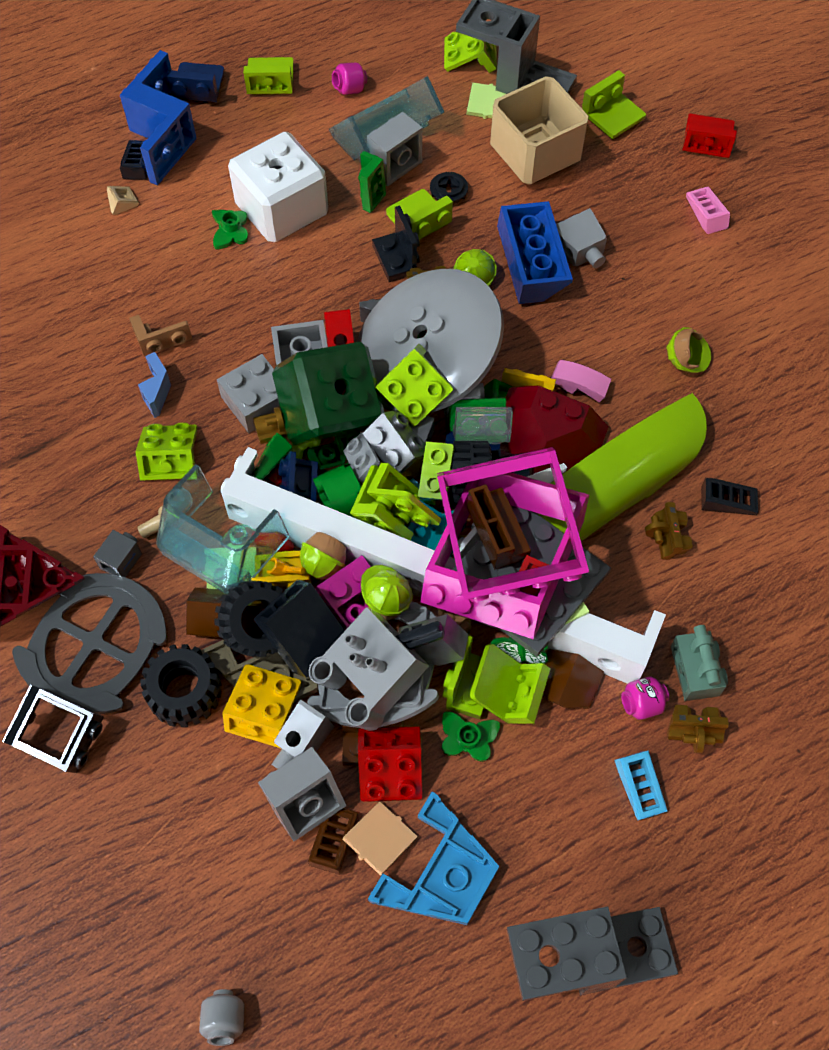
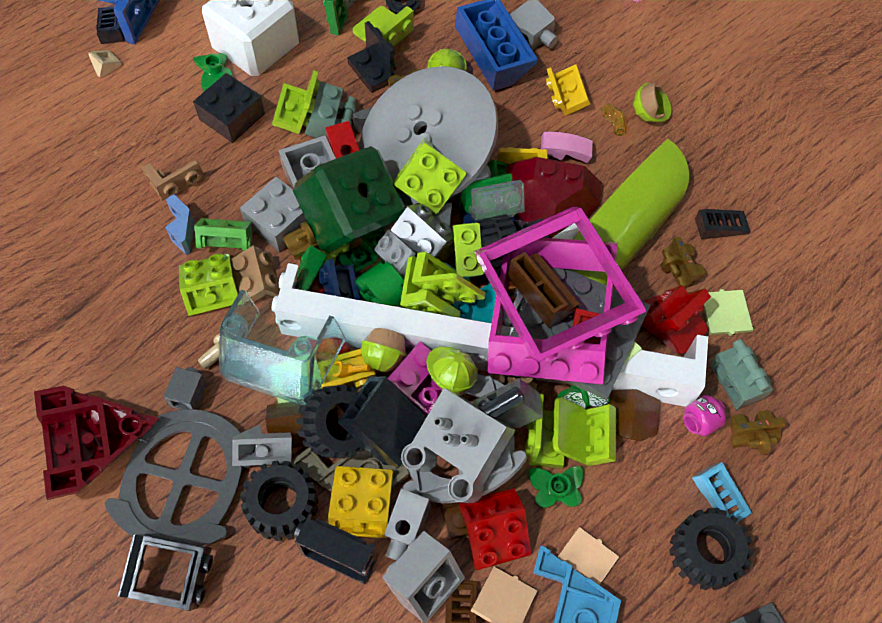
camera: 15 degrees left, 0 degrees up
(171, 628) = (257, 448): none -> light grey slope
(195, 403) = (223, 233): none -> bright green hinge
(216, 450) = (255, 273): none -> medium nougat bracket
(223, 745) = (335, 549): none -> black window
(235, 271) = (229, 107): none -> black brick
(303, 282) = (296, 105): none -> lime bracket
(333, 289) = (326, 110): none -> sand green brick
(480, 815) = (588, 556): none -> light nougat piece
(599, 318) = (568, 89): none -> yellow bracket
(626, 818) = (729, 536): none -> black tyre
(643, 587) = (676, 317): none -> red piece
(645, 358) = (616, 117): none -> clear yellow arm
(705, 594) = (727, 313): none -> yellowish green piece

